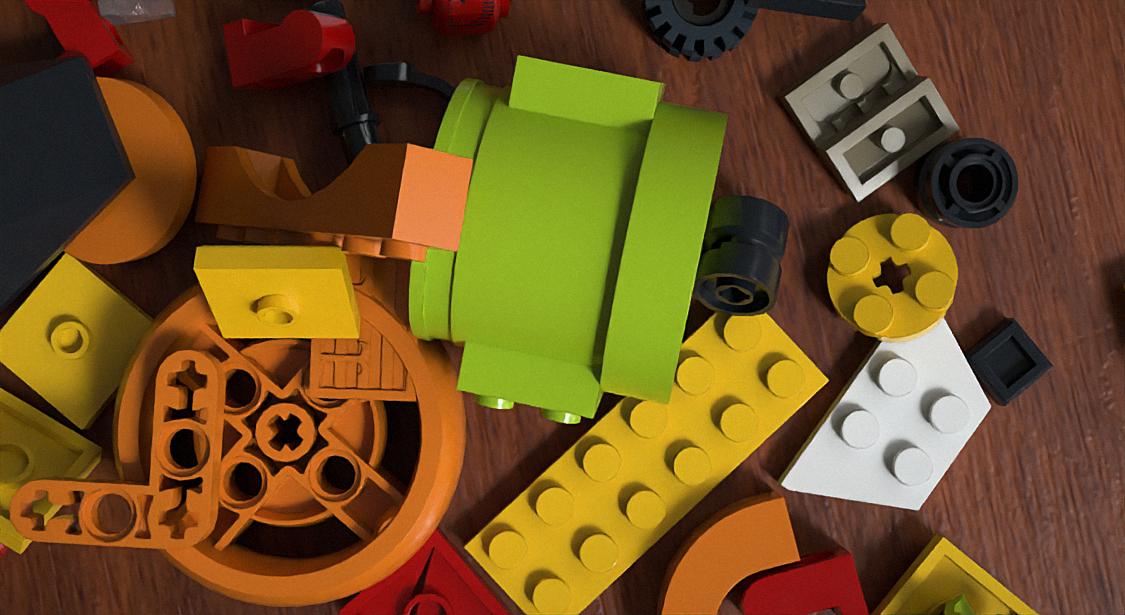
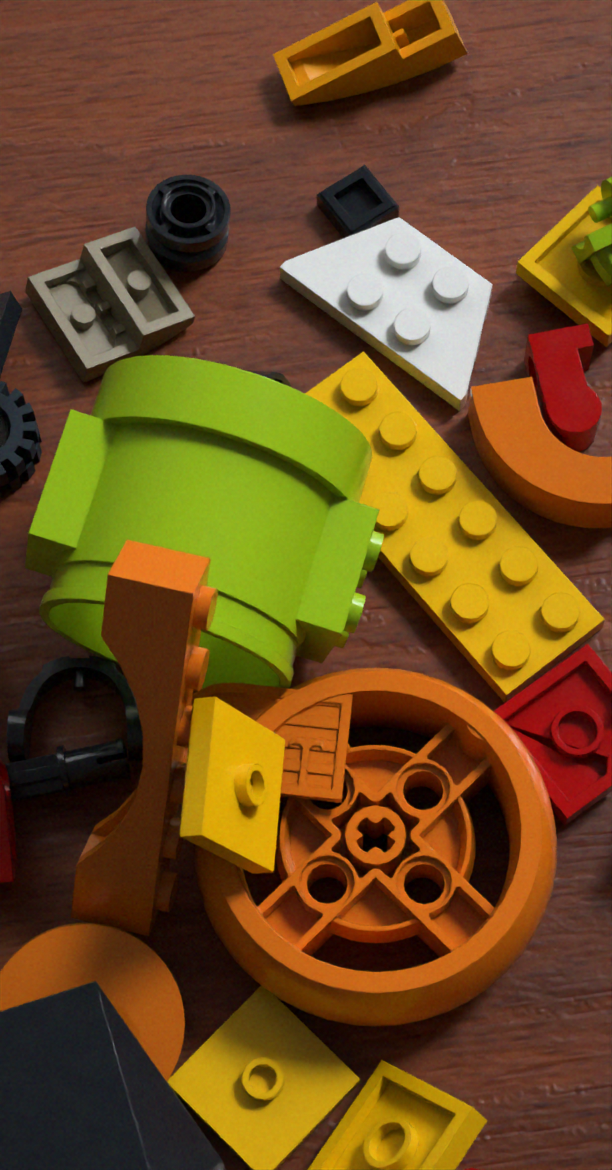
camera: 85 degrees left, 20 degrees down
(150, 499) = (435, 955): orange beam -> none
(906, 243) = (300, 304): yellow plate -> none

